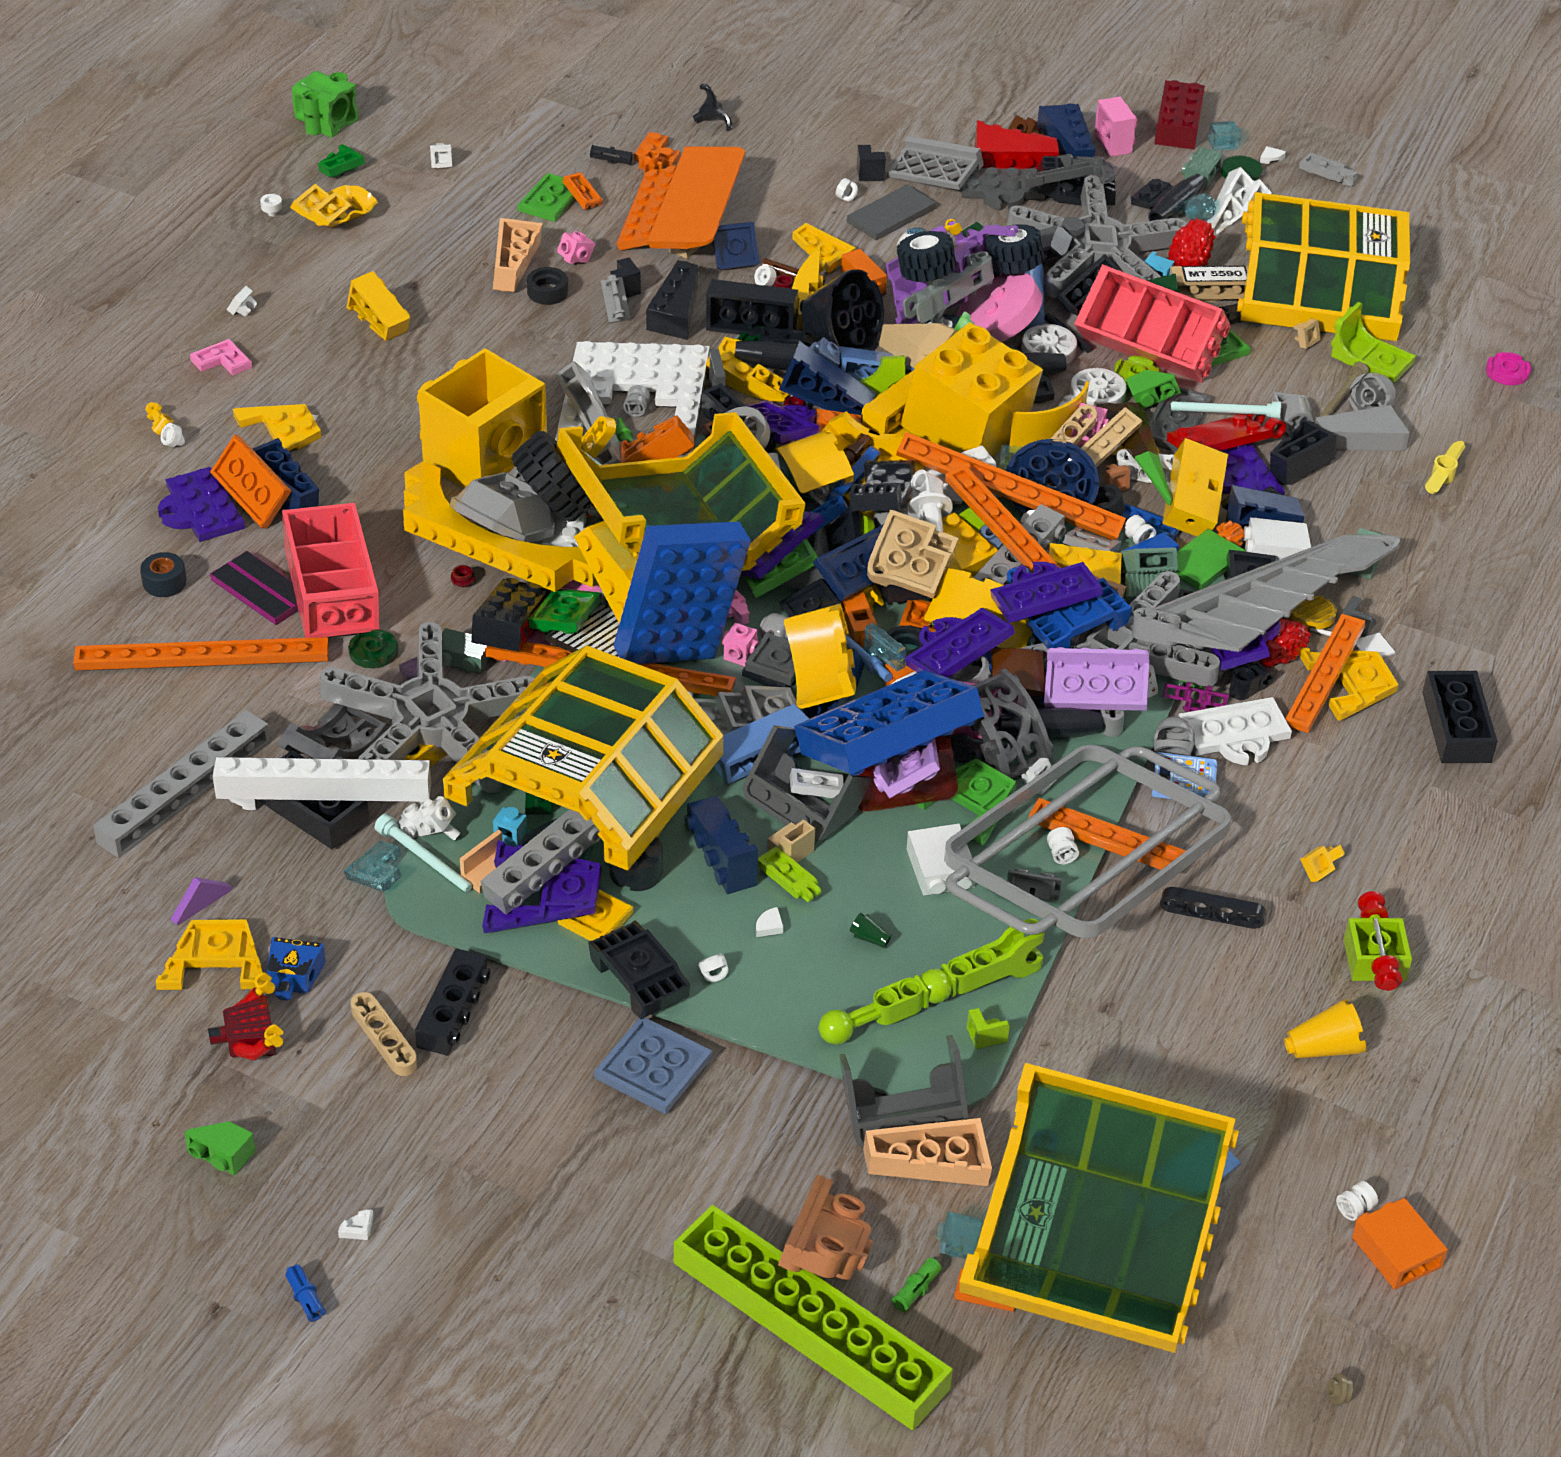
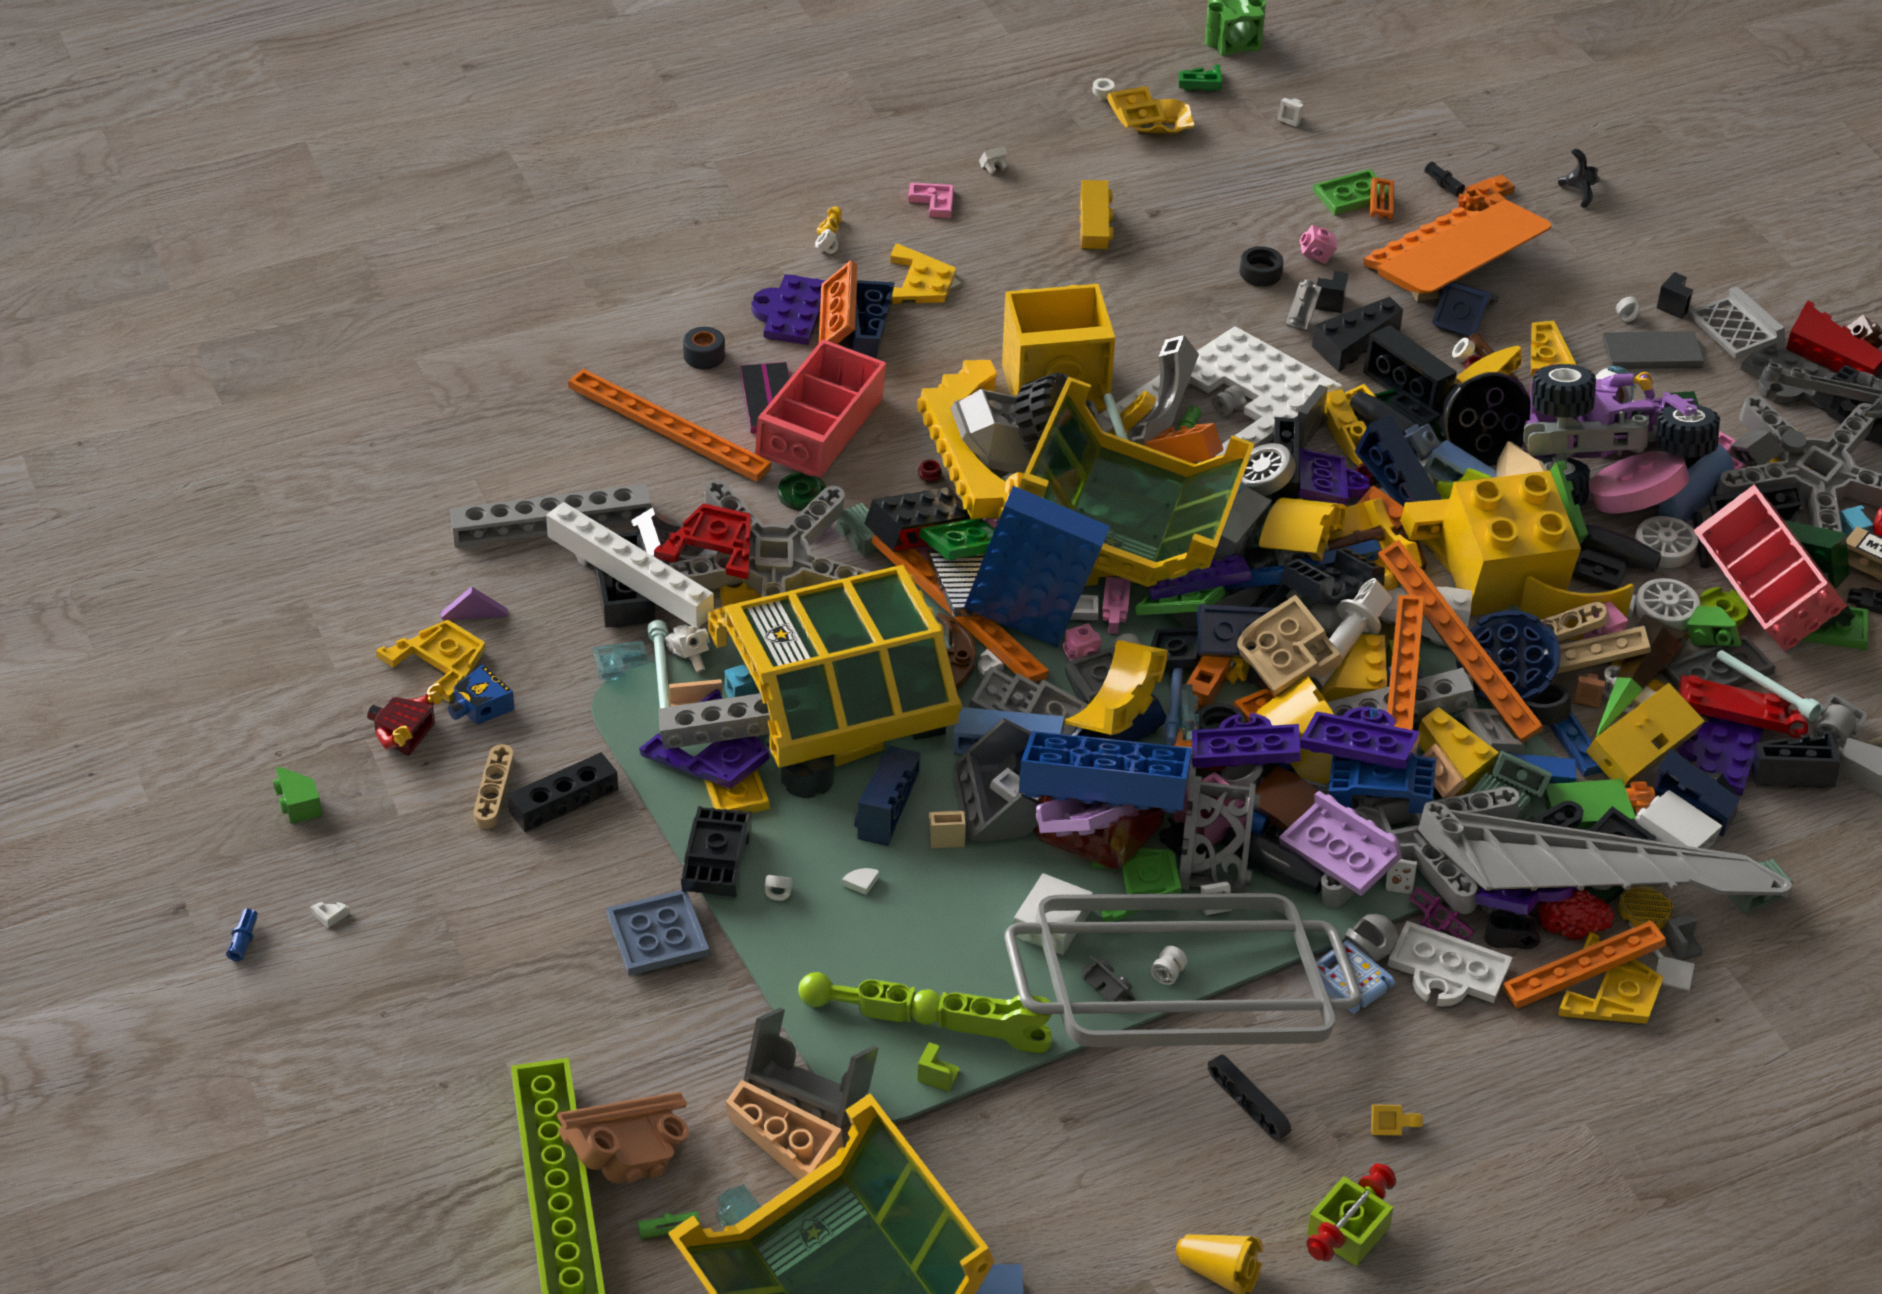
camera: 40 degrees right, 0 degrees up
(375, 709) = (714, 530): none -> red wing
(514, 252) = (1258, 223): light nougat wedge -> none
(789, 874) = (917, 850): lime hinge -> none
(868, 930) = (930, 932): dark green cone -> none
(1106, 835) = (1215, 976): orange plate -> none
(1137, 529) = (1550, 742): white wheel -> none
(1206, 575) = (1564, 814): none -> black plate
(1459, 717) = (1671, 1077): black brick -> none

